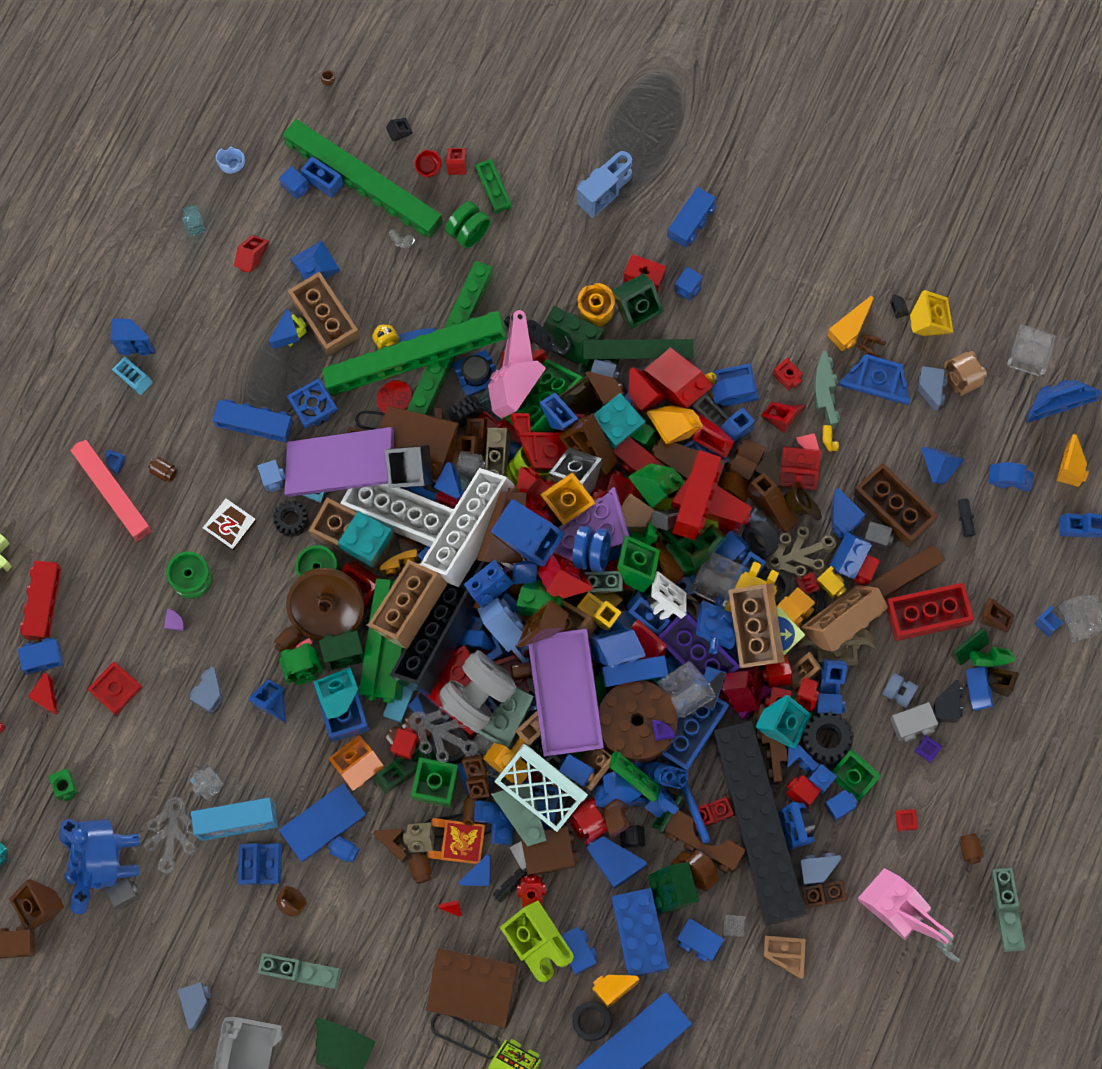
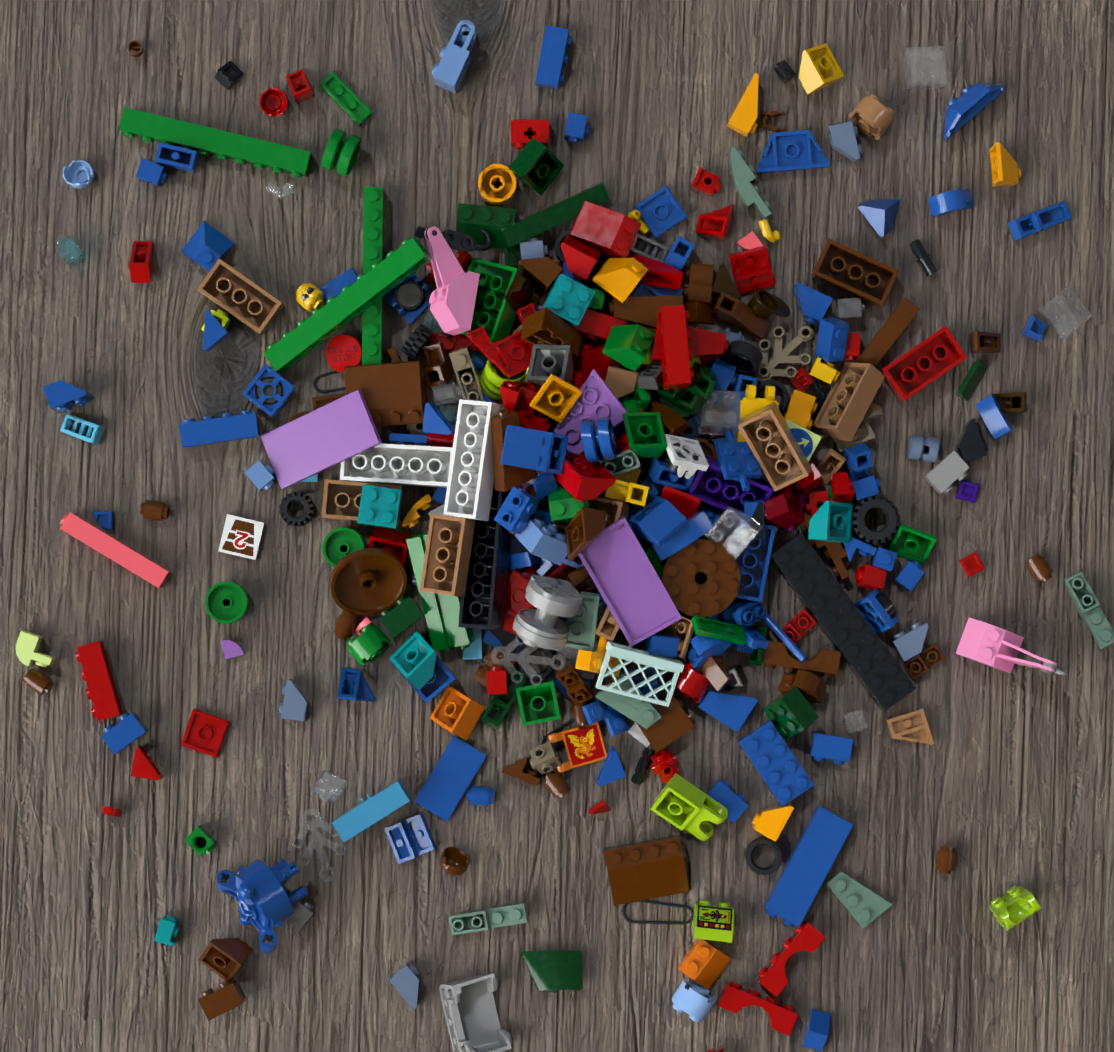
camera: 25 degrees left, 15 degrees up
(408, 466) = (392, 423): black piece -> none
(408, 544) = (418, 492): reddish brown tile -> none
(557, 412) = (510, 315): blue slope -> none
(662, 731) = (729, 581): dark purple tile -> none
(733, 387) = (661, 219): blue slope -> none
(996, 657) = (998, 382): green slope -> none

